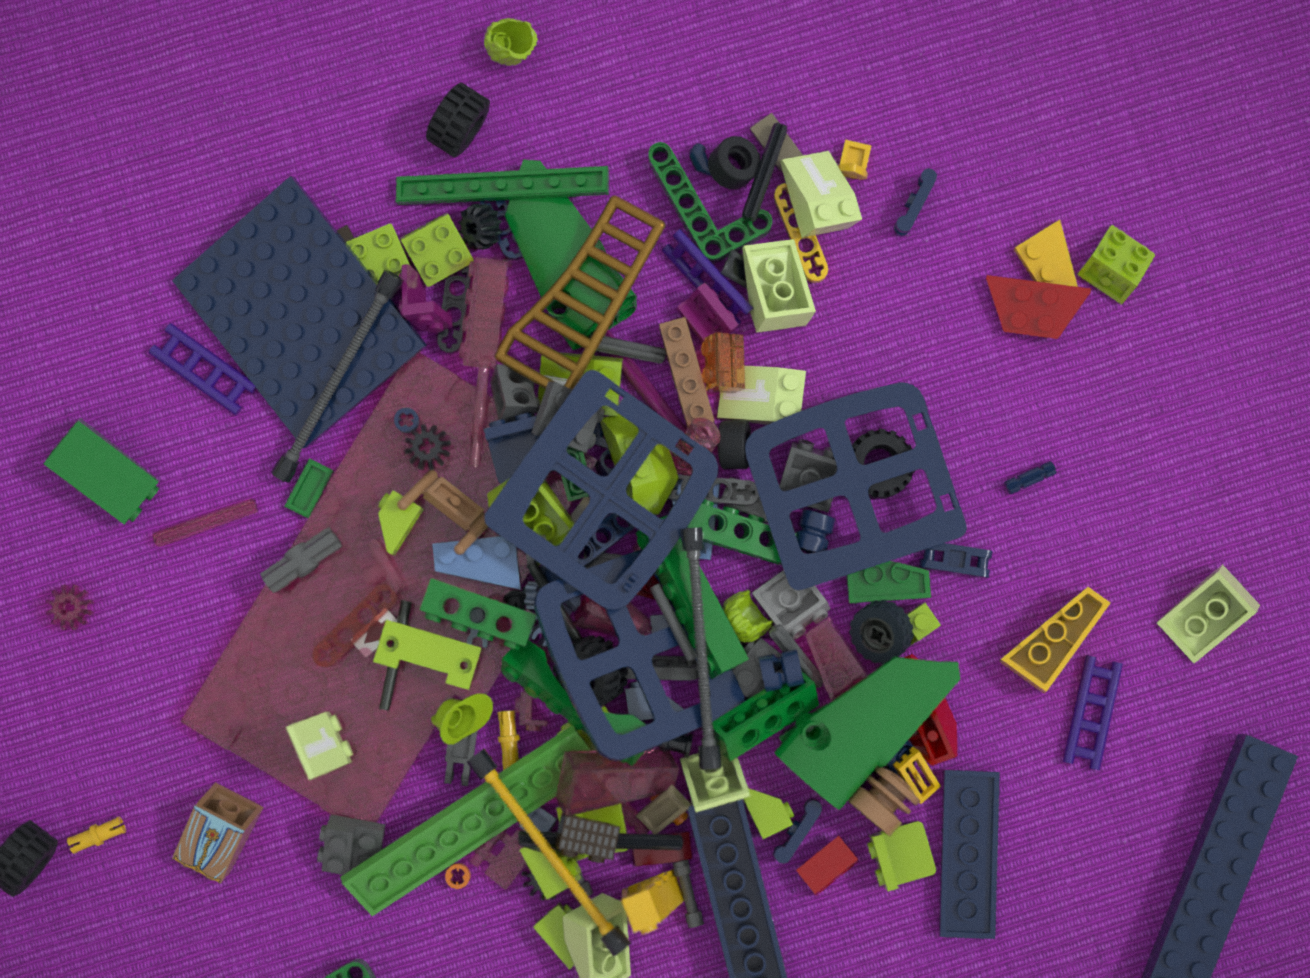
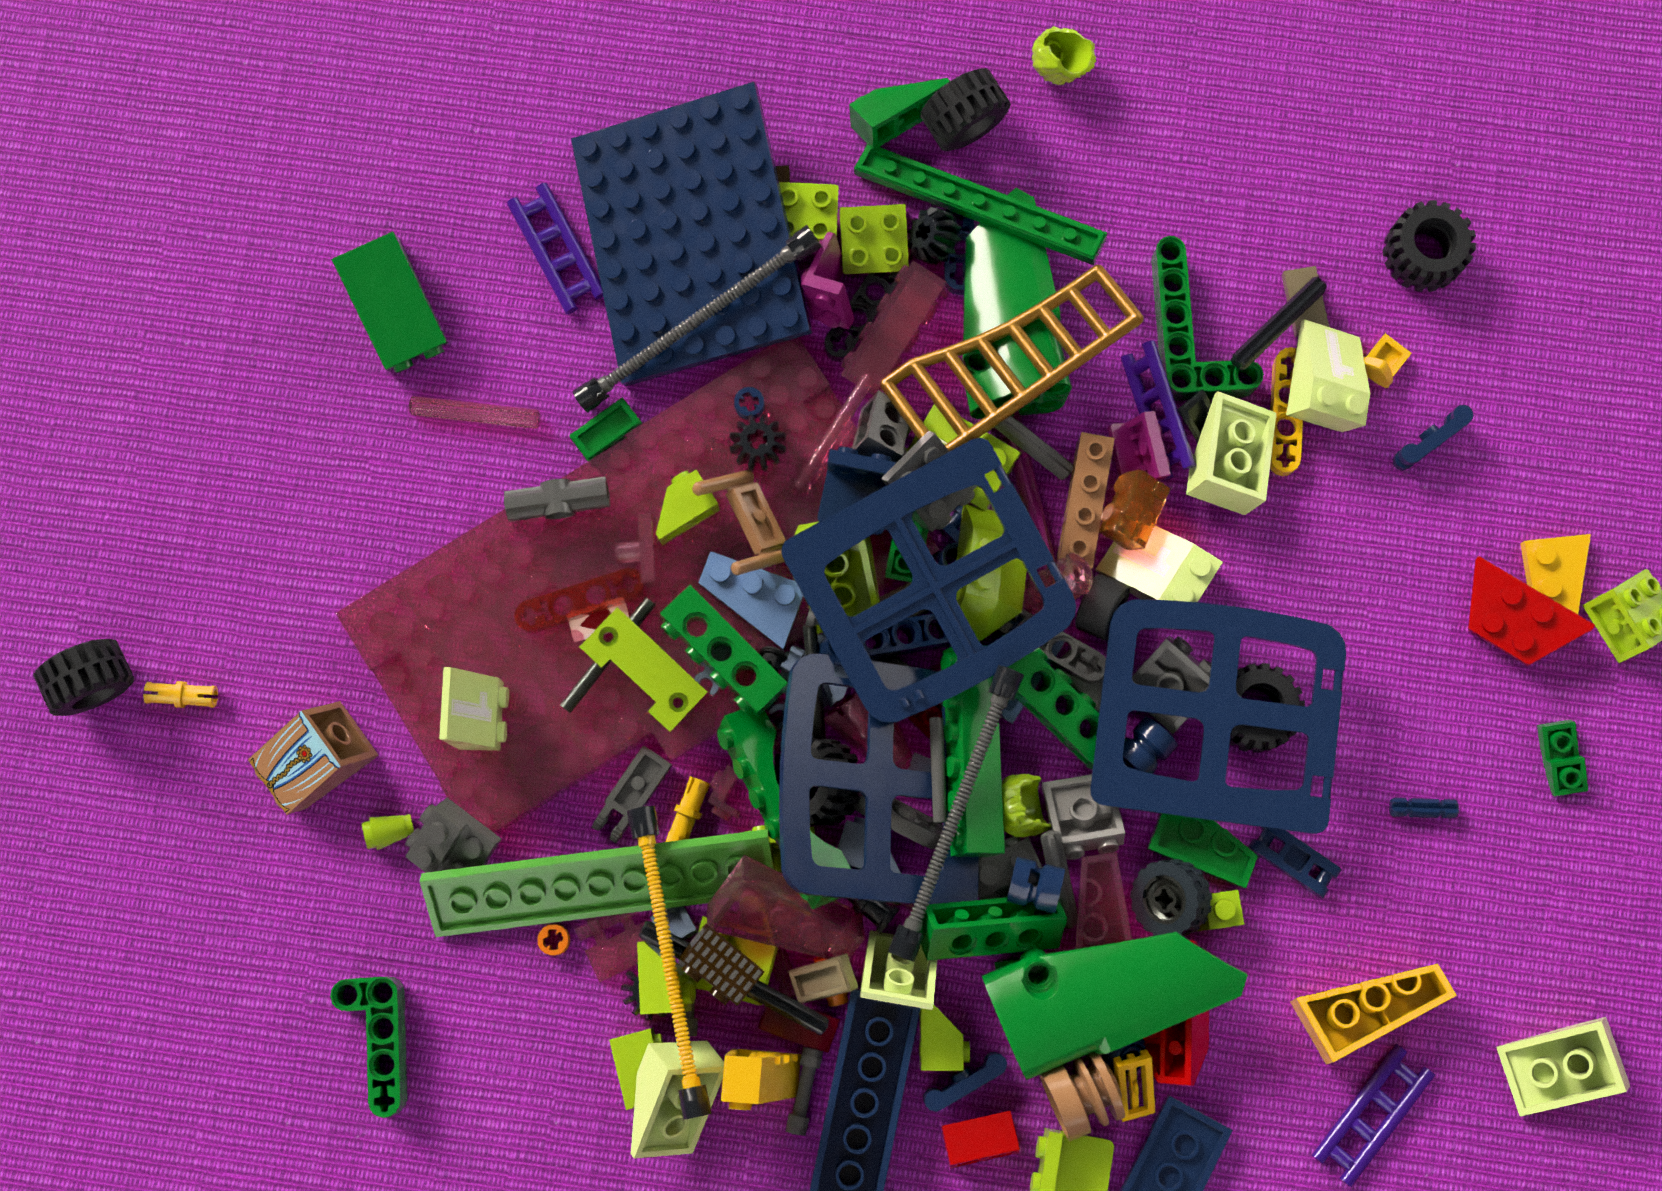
camera: 30 degrees right, 5 degrees down
(73, 597) = (287, 420): clear pink gear -> none
(298, 858) = (386, 830): none -> lime cone
(403, 143) = (891, 110): none -> green slope
(462, 717) = (648, 761): lime piece -> none
(699, 158) = (1211, 283): dark blue arm -> none
(724, 172) = (1234, 304): black tyre -> none
(853, 38) = (1442, 225): none -> black tyre
(1111, 393) = (1561, 758): none -> green slope

